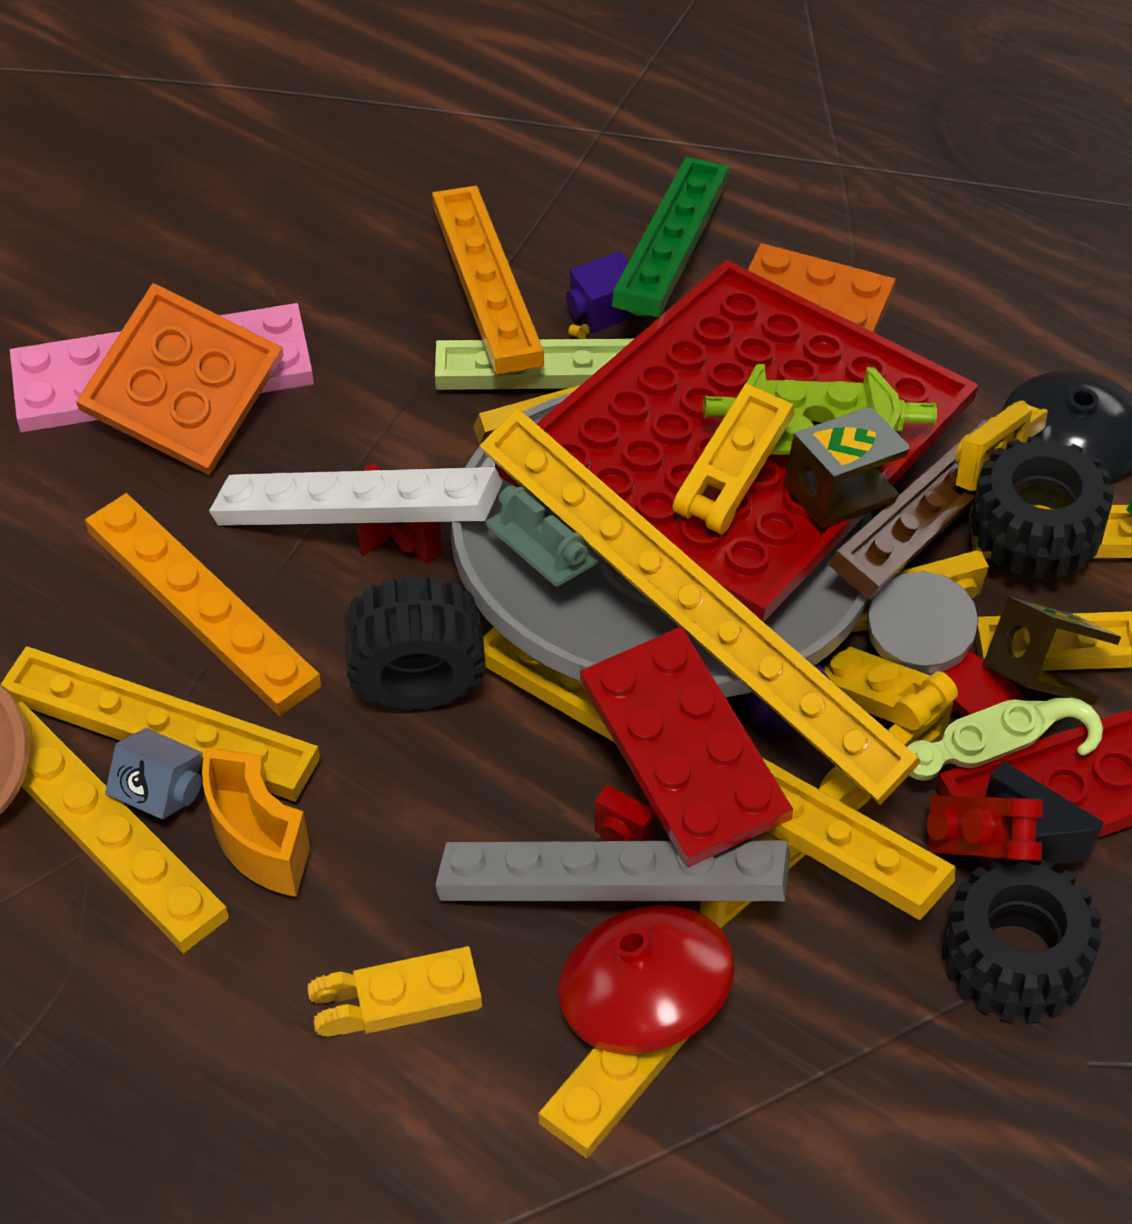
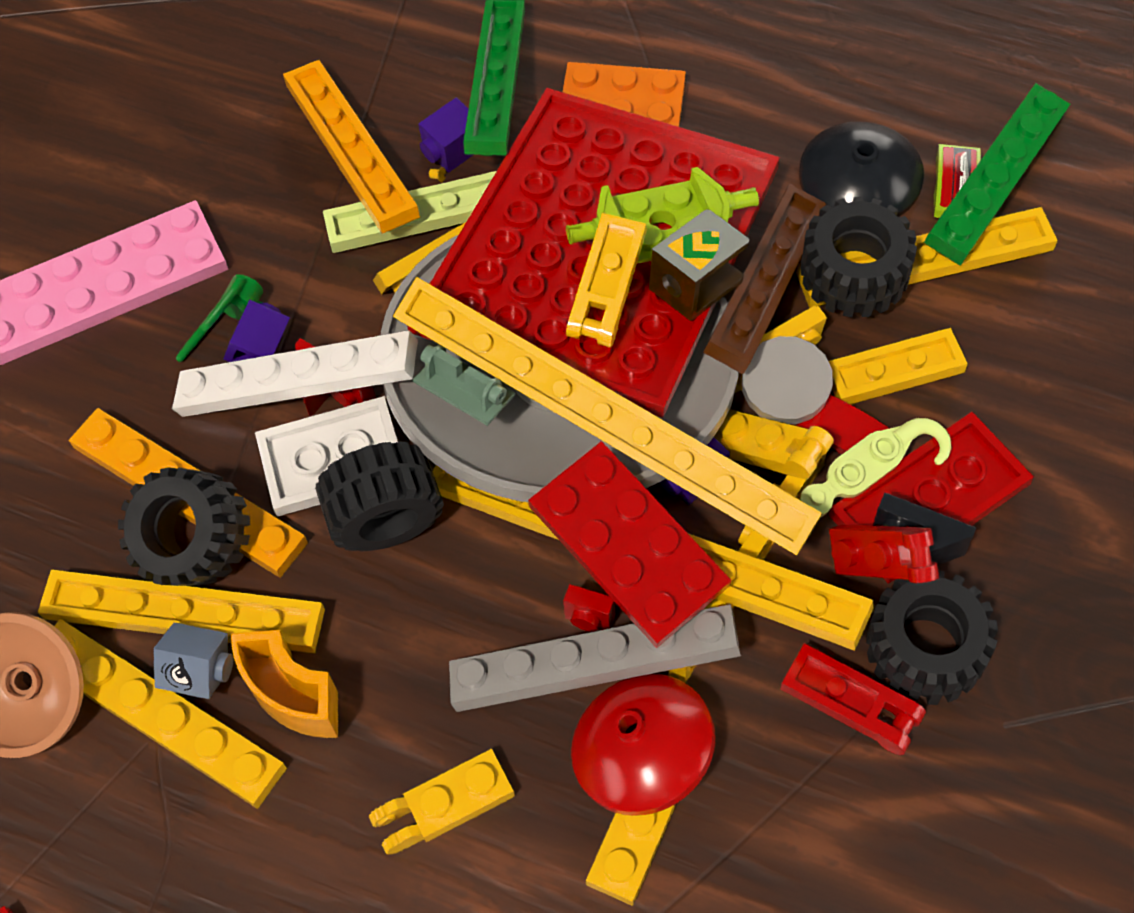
camera: 10 degrees left, 10 degrees up
(159, 606) = (152, 520): none -> black tyre
(180, 378) = (115, 295): orange plate -> none
(313, 415) = (232, 303): none -> green plant
(326, 447) = (256, 332): none -> dark purple brick
(330, 580) = (304, 448): none -> white plate
(910, 989) = (852, 698): none -> red plate
(1013, 423) = (807, 202): yellow hinge -> none
(1041, 626) = (888, 364): dark brown piece -> none

